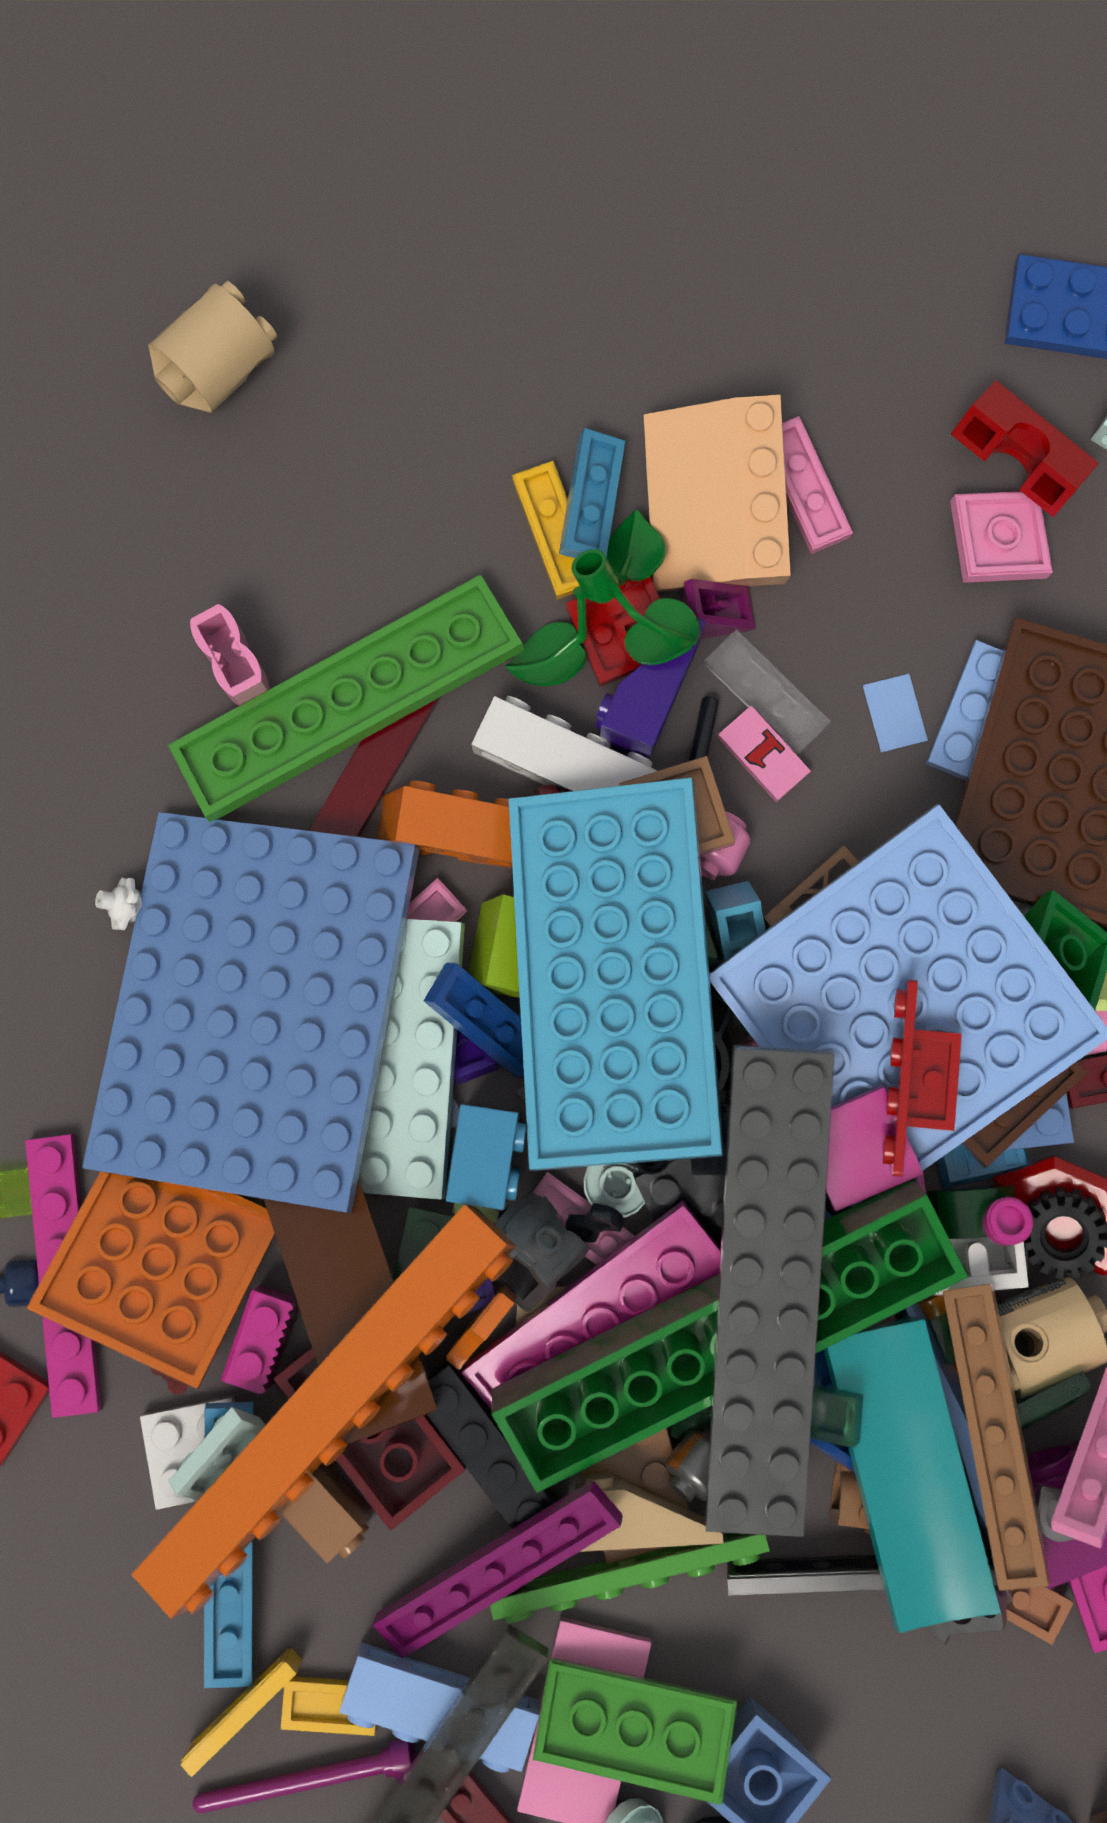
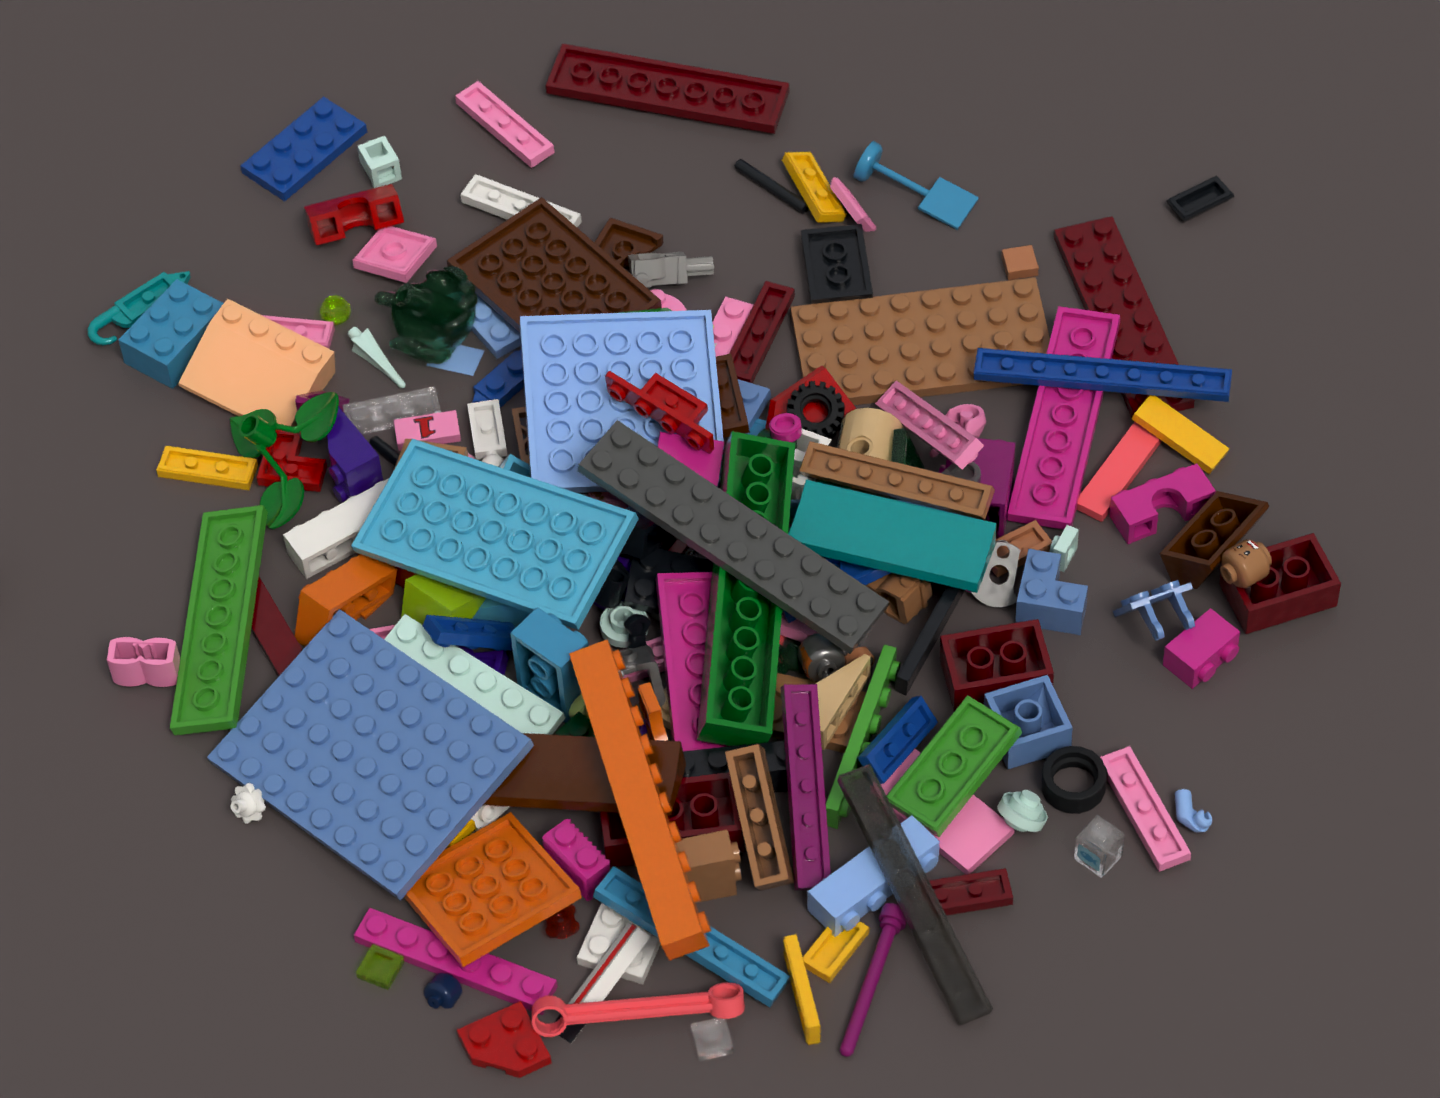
camera: 55 degrees left, 30 degrees down
(49, 1450) = (721, 1001): none -> coral piece
(108, 1464) = (607, 972): none -> sticker
(129, 1636) = (712, 1038): none -> clear plate
(215, 1453) = (627, 887): light aqua plate -> none
(418, 1541) = (759, 817): none -> medium nougat brick
(592, 493) = (205, 432): dark azure plate -> none
(642, 1626) = (899, 738): none -> blue plate
(712, 353) = (168, 333): none -> dark azure brick
(736, 285) = (133, 305): none -> teal plate
(795, 836) = (487, 431): none -> white plate
(820, 1689) = (993, 659): none -> dark red brick
(836, 1416) = (831, 546): clear green plate -> none
(840, 598) = (368, 349): none -> light aqua piece
(871, 523) = (335, 309): none -> clear neon green plate
(893, 796) = (502, 381): none -> blue plate
(921, 653) = (432, 314): none -> clear green piece
(960, 1680) = (1043, 597): none -> medium blue brick
(1054, 1662) = (1065, 545): none -> light aqua plate

